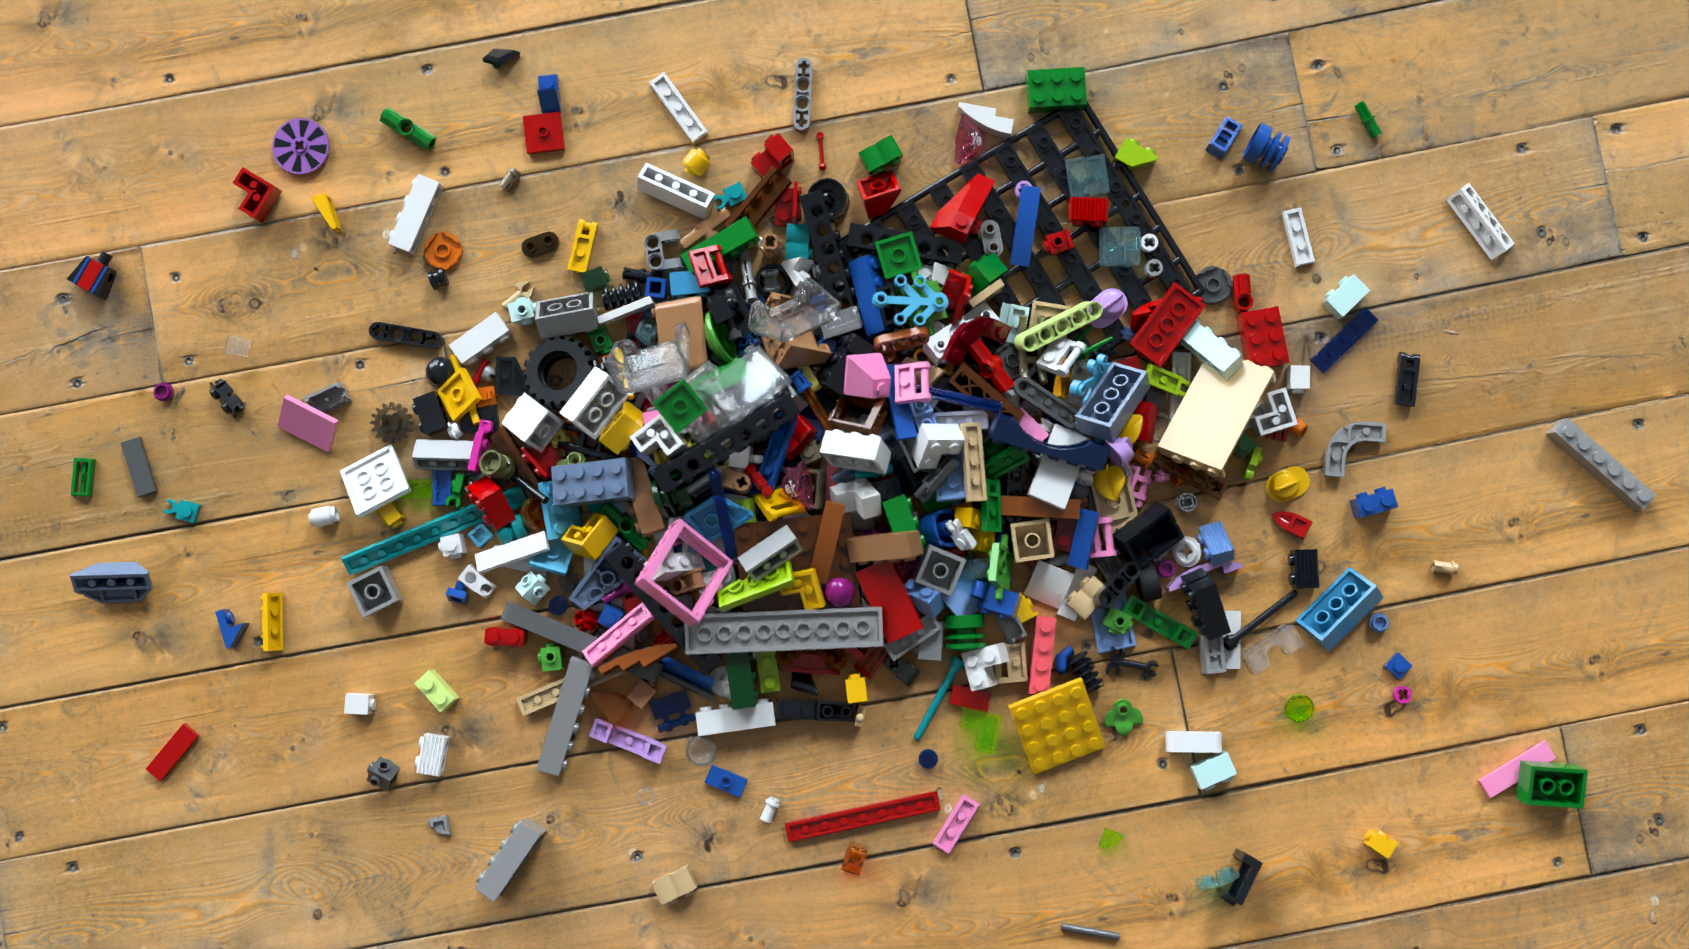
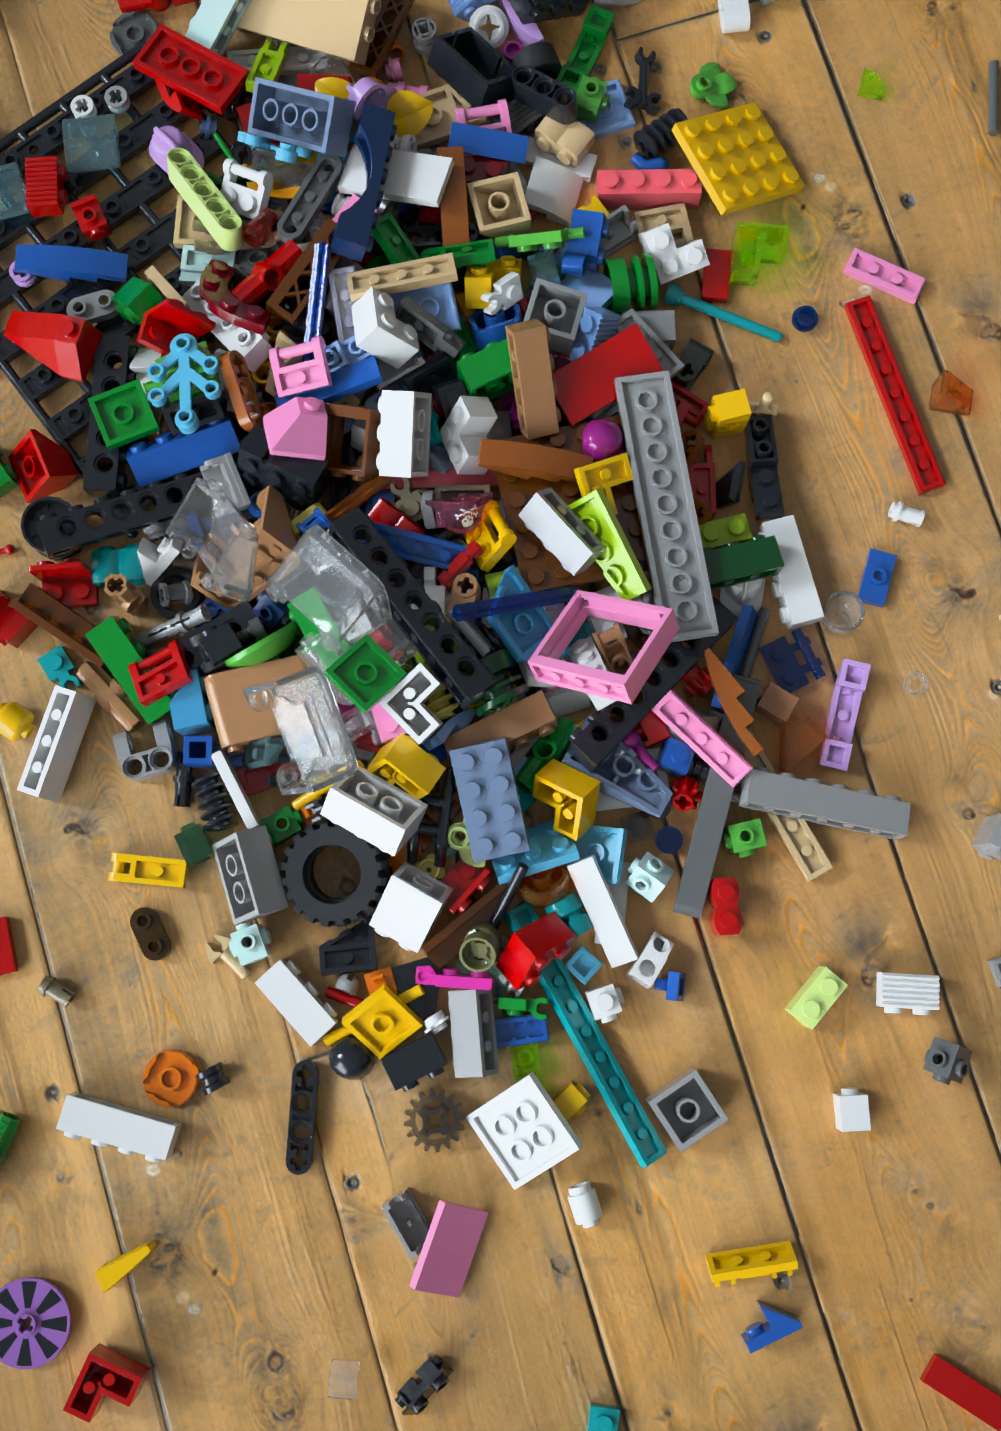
camera: 100 degrees left, 5 degrees down
(810, 463) = (428, 513): none -> light grey tile
(1028, 364) = (258, 229): none -> clear red cone

